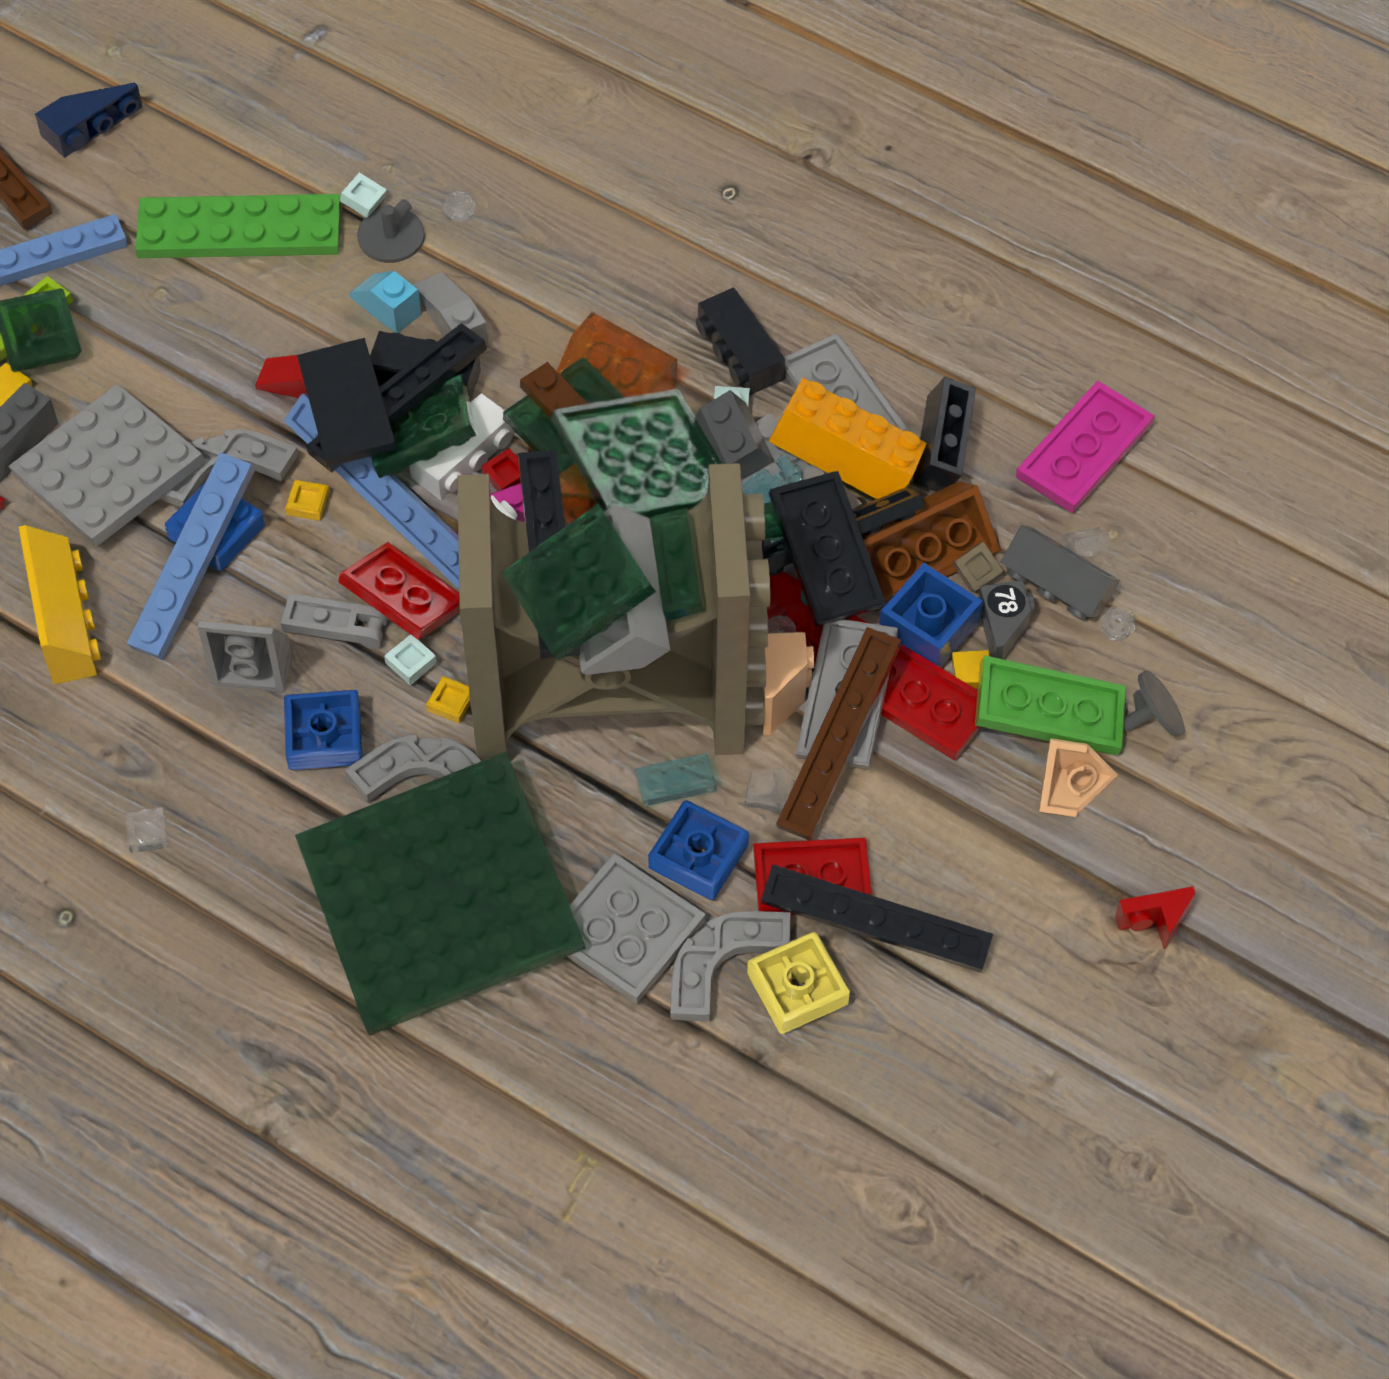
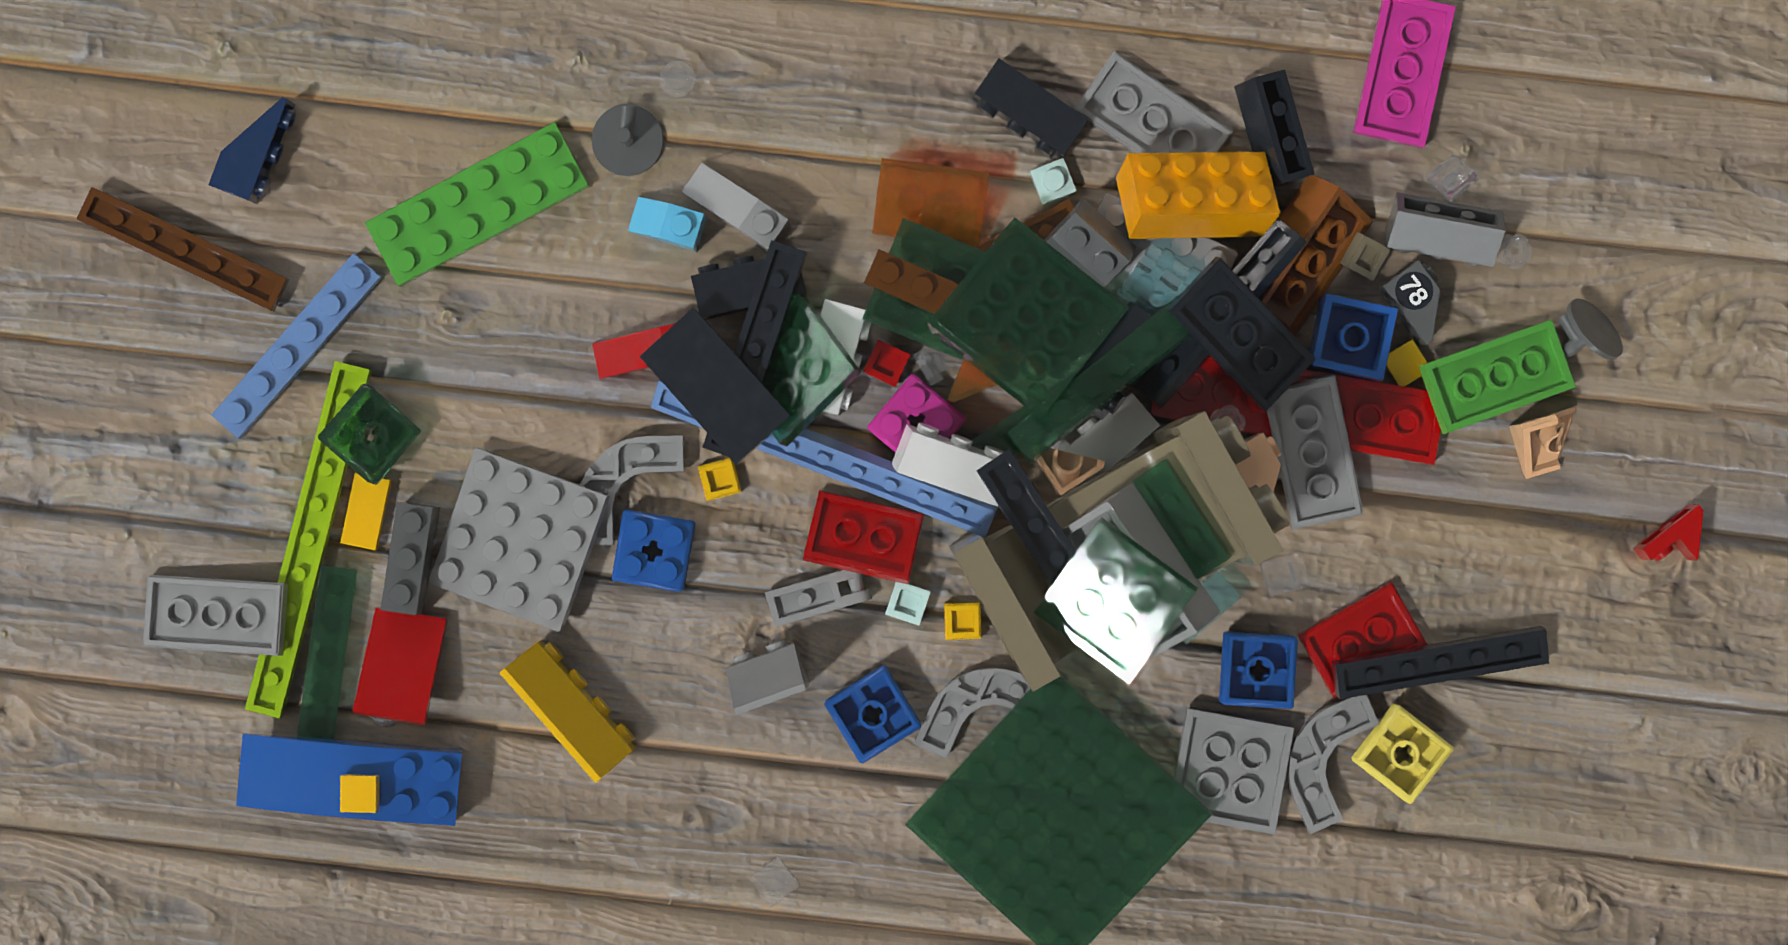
camera: 25 degrees left, 30 degrees up
(191, 556) = (659, 604): medium blue plate -> none
(363, 195) = (579, 113): light aqua plate -> none
(839, 734) = (1330, 502): reddish brown plate -> none

